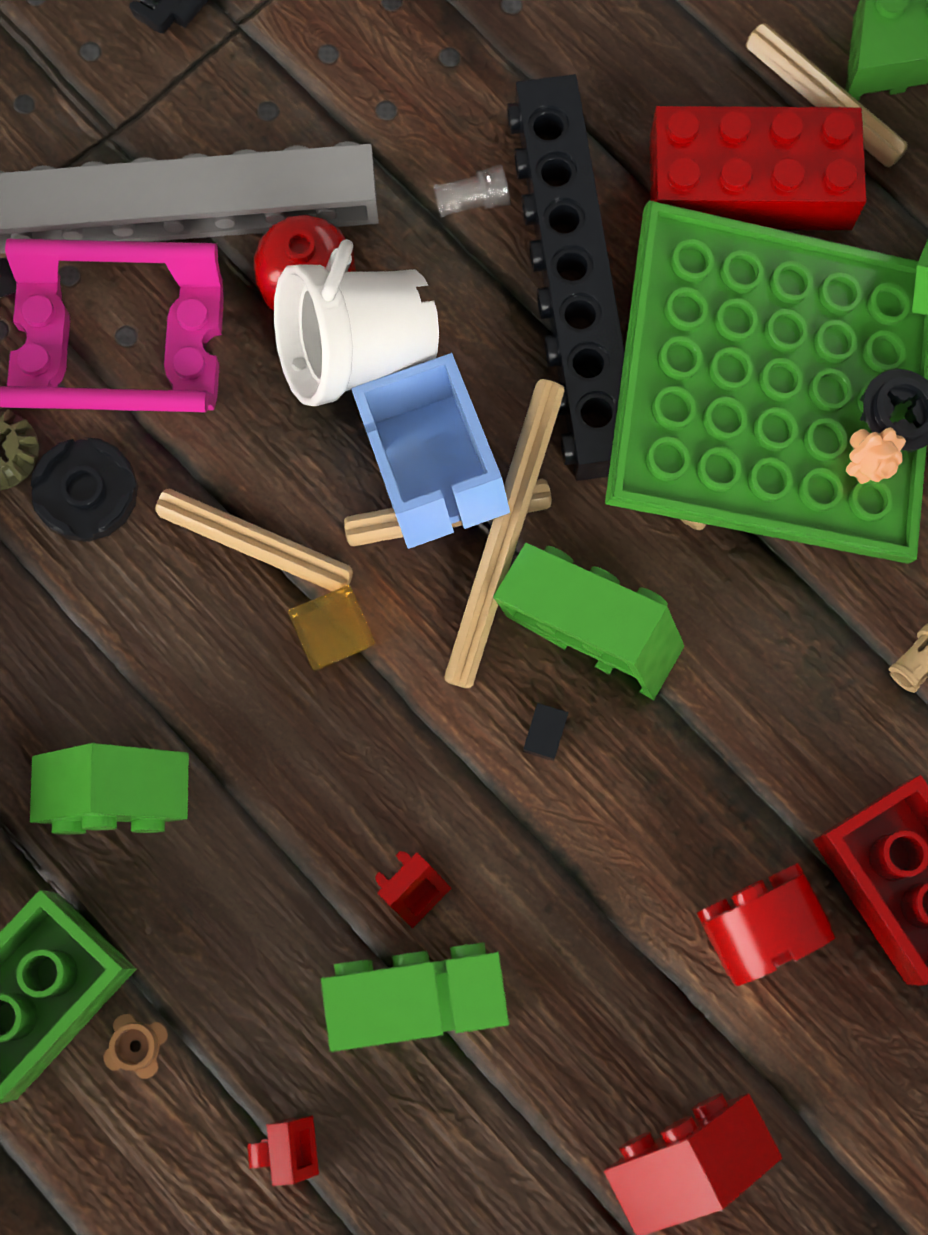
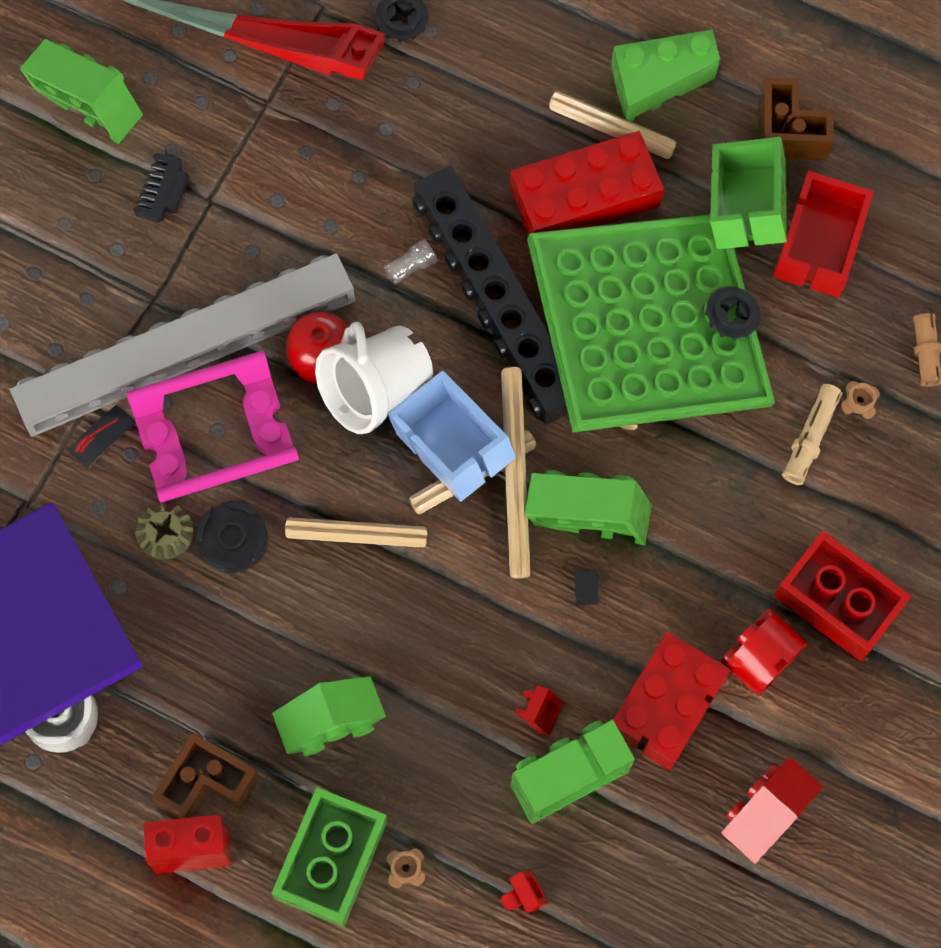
camera: 25 degrees left, 5 degrees down
(331, 628) = (428, 569): clear yellow piece -> none
(601, 943) = (669, 699): none -> red piece
(875, 455) = (726, 346): light nougat plant -> none

